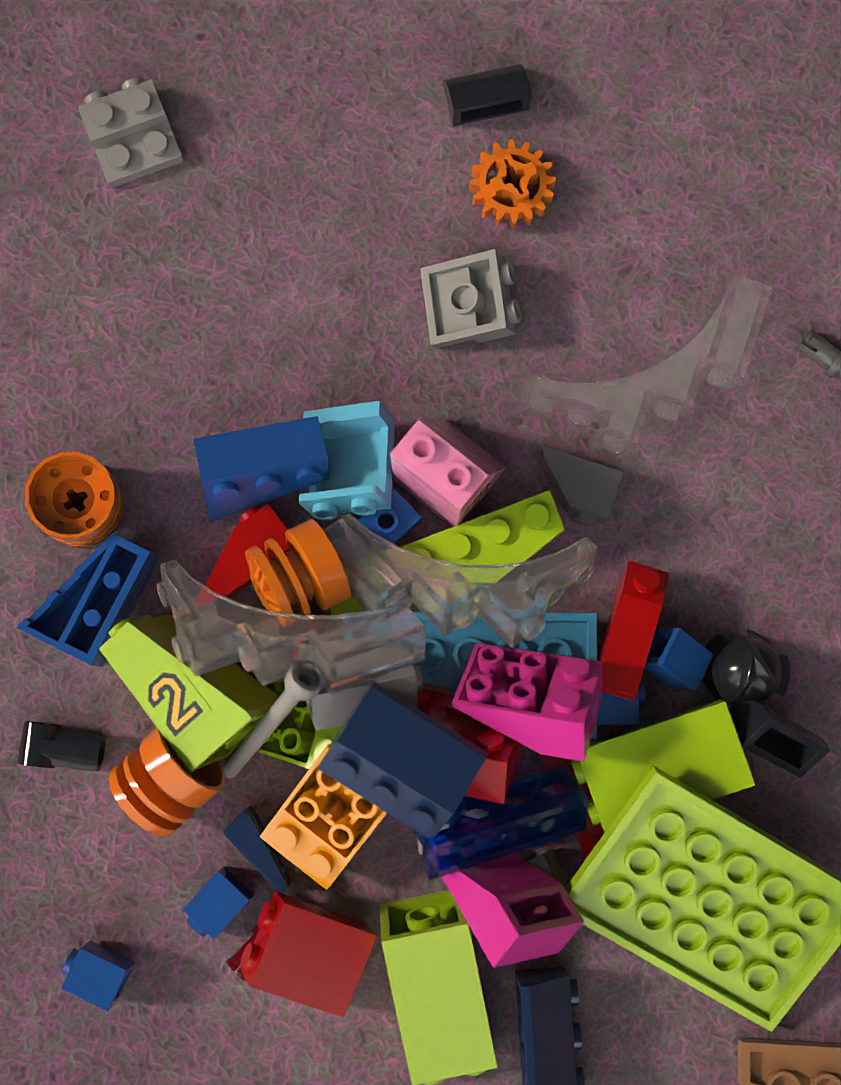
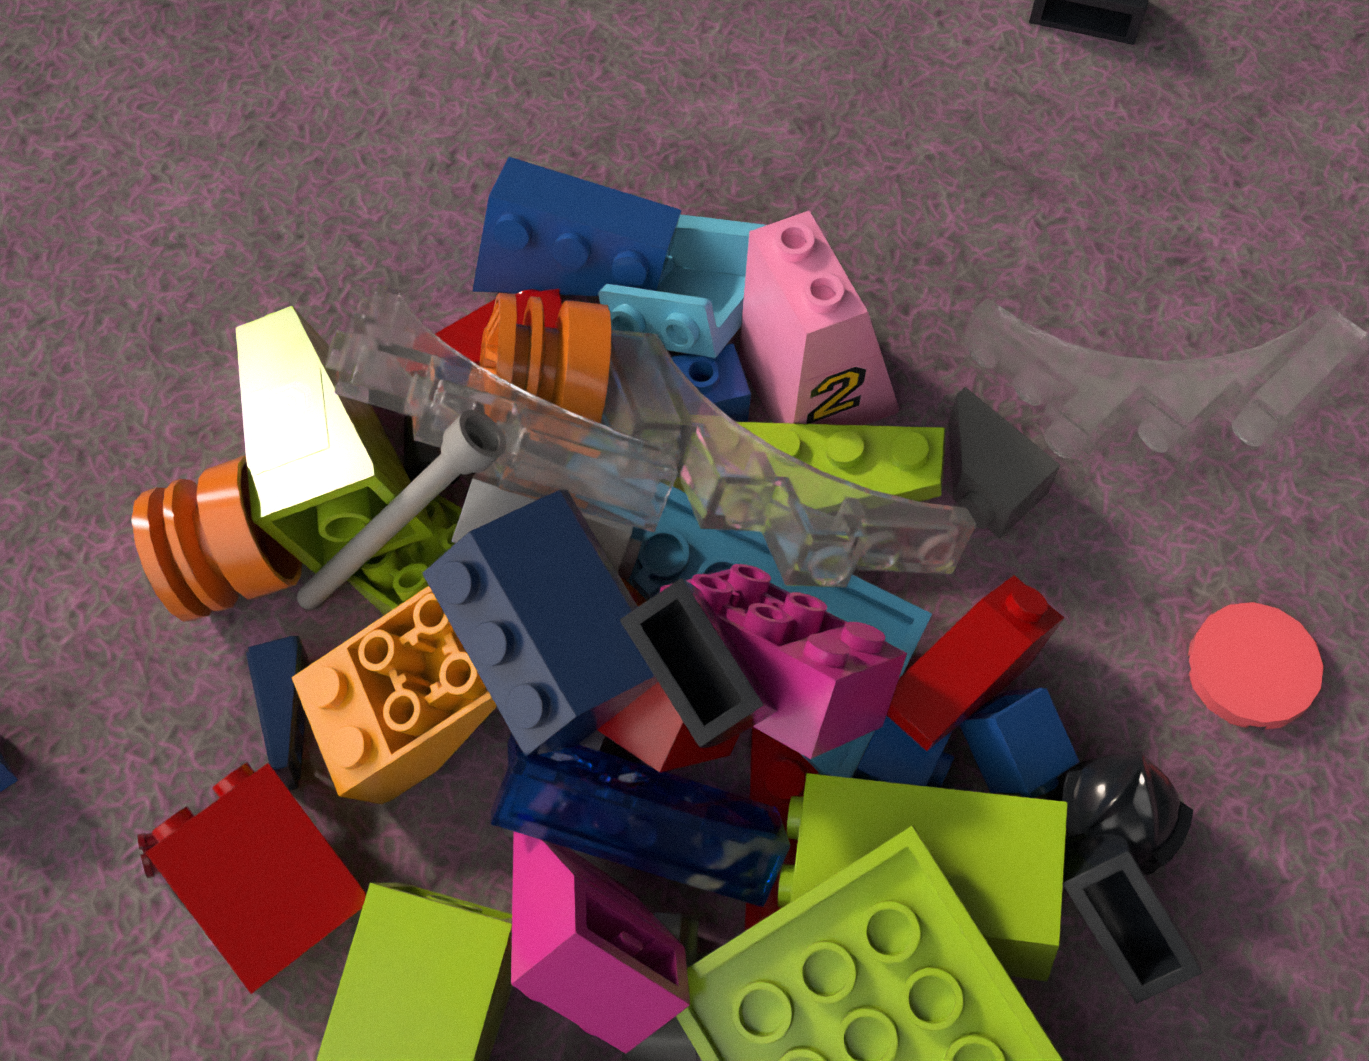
camera: 25 degrees right, 20 degrees down
(51, 493) = (322, 178): orange wheel -> none
(52, 746) = (104, 449): black piece -> none
(93, 600) = (314, 272): blue wedge -> none
(217, 904) = (177, 750): blue brick -> none
(470, 299) = (954, 194): light grey plate -> none
(505, 751) = (697, 664): none -> black brick
(519, 167) = (1073, 100): orange gear -> none
(780, 534) = (1255, 666): none -> coral tile

